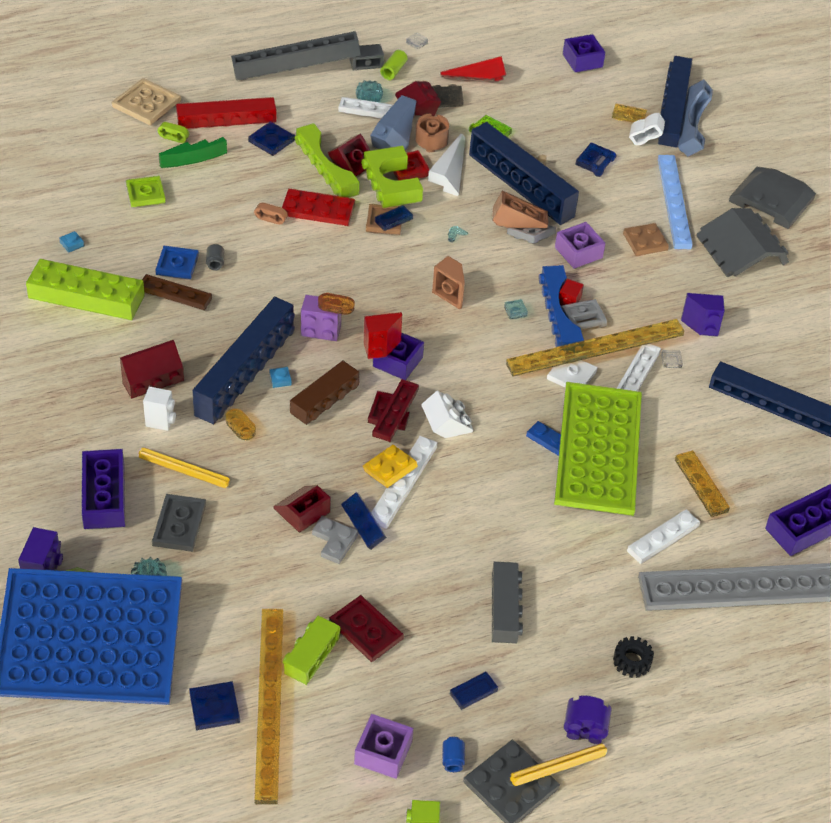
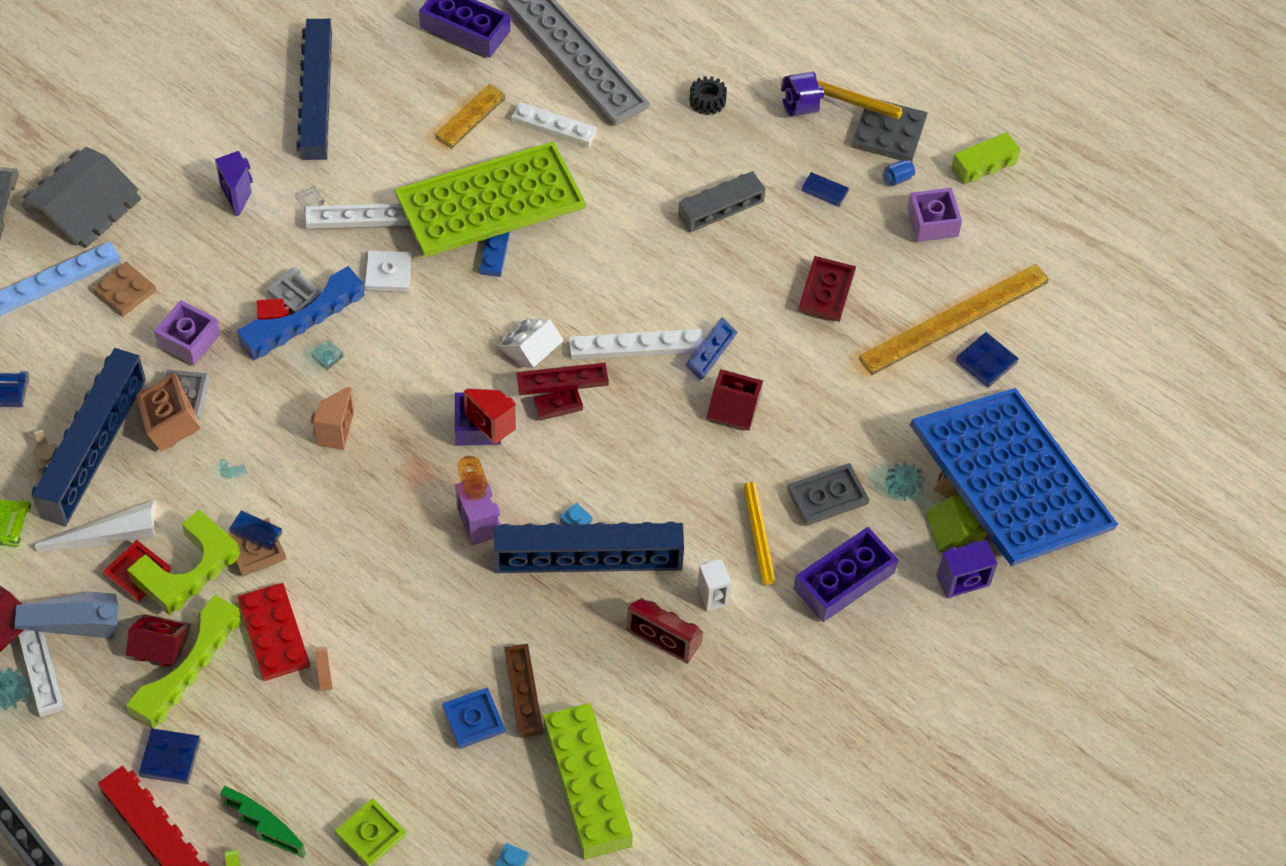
camera: 120 degrees left, 10 degrees up
(215, 257) = (439, 681): dark grey brick -> none
(240, 424) = (666, 513): clear yellow plate -> none
(311, 649) = (881, 314): lime brick -> none
(324, 392) = (577, 457): reddish brown brick -> none
(338, 537) = (745, 358): light grey plate -> none
(390, 466) = (632, 356): yellow plate -> none
(432, 132) = (59, 570): nougat brick -> none
(594, 347) = (350, 255): clear yellow plate -> none

